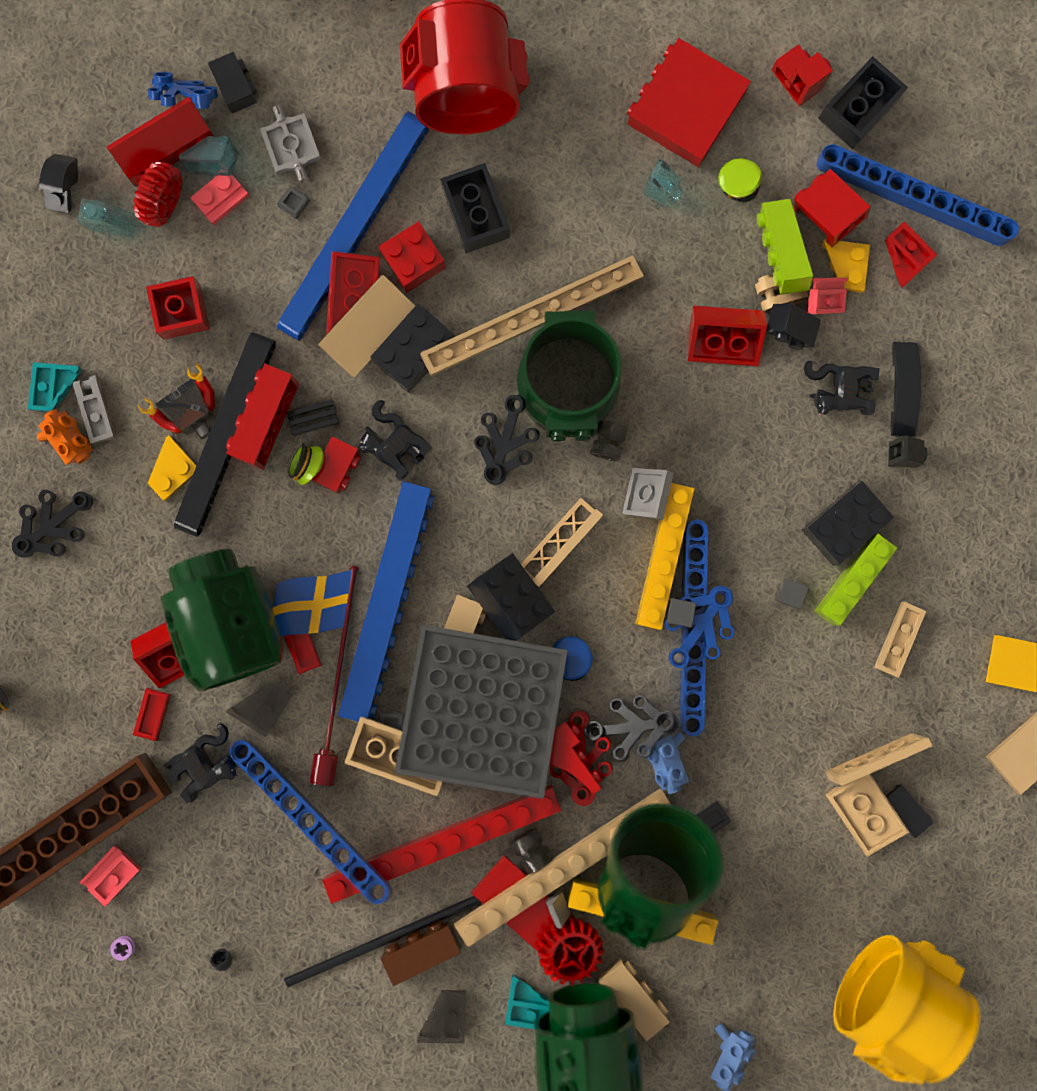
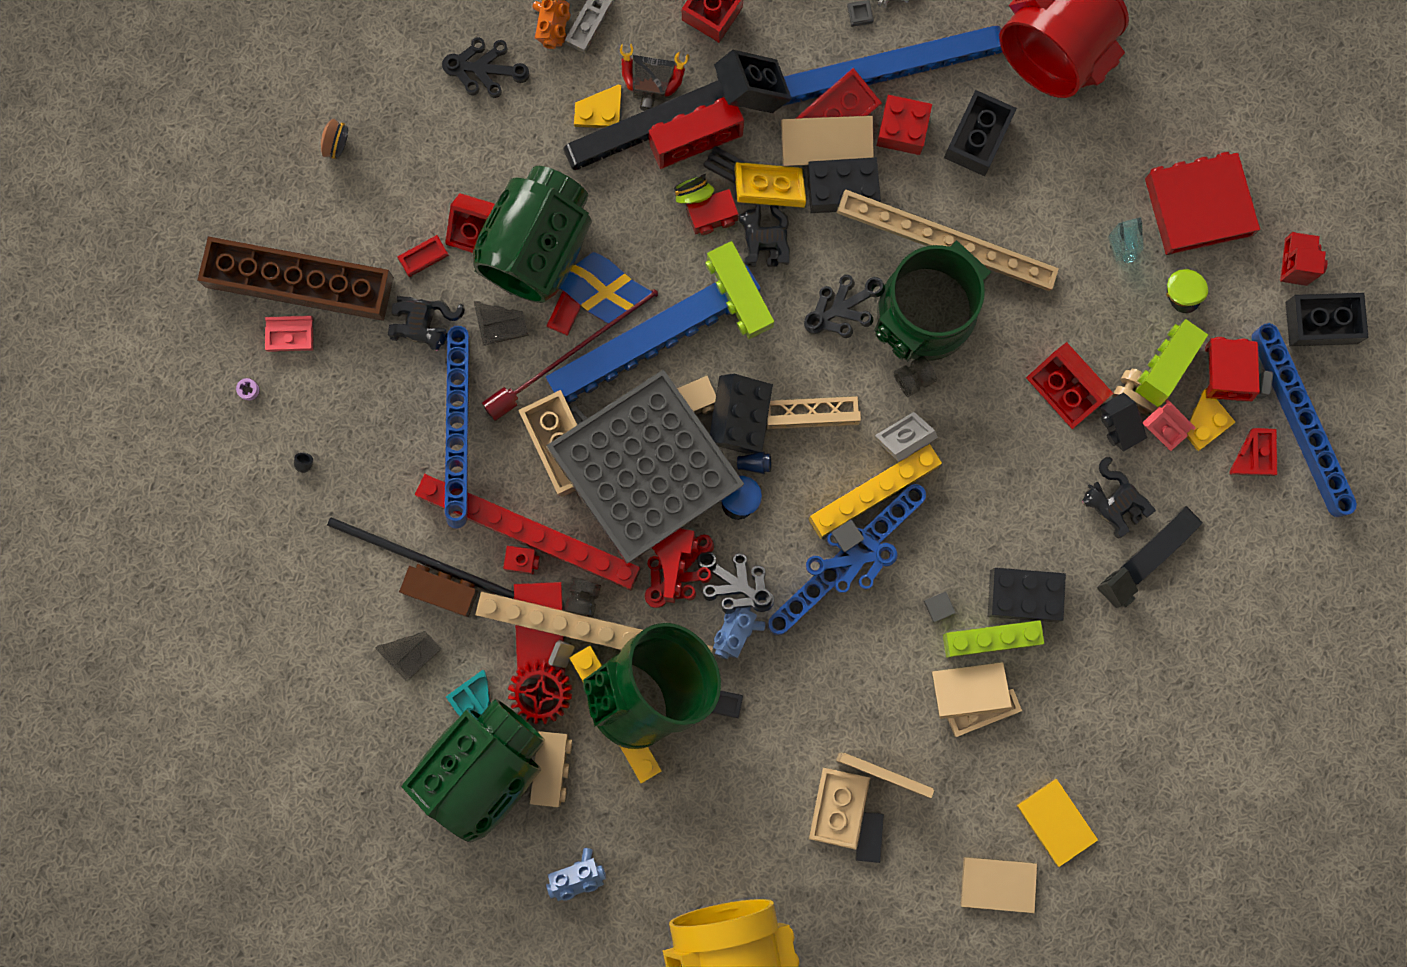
camera: 45 degrees right, 5 degrees down
(267, 338) = (752, 81): none -> black brick
(358, 402) = (770, 184): none -> yellow tile
(417, 506) = (740, 290): none -> lime brick
(458, 868) = (521, 560): none -> red brick
(556, 622) = (755, 462): none -> dark blue cone
(865, 193) = (1265, 384): none -> dark grey tile
(877, 633) = (971, 690): none -> tan tile

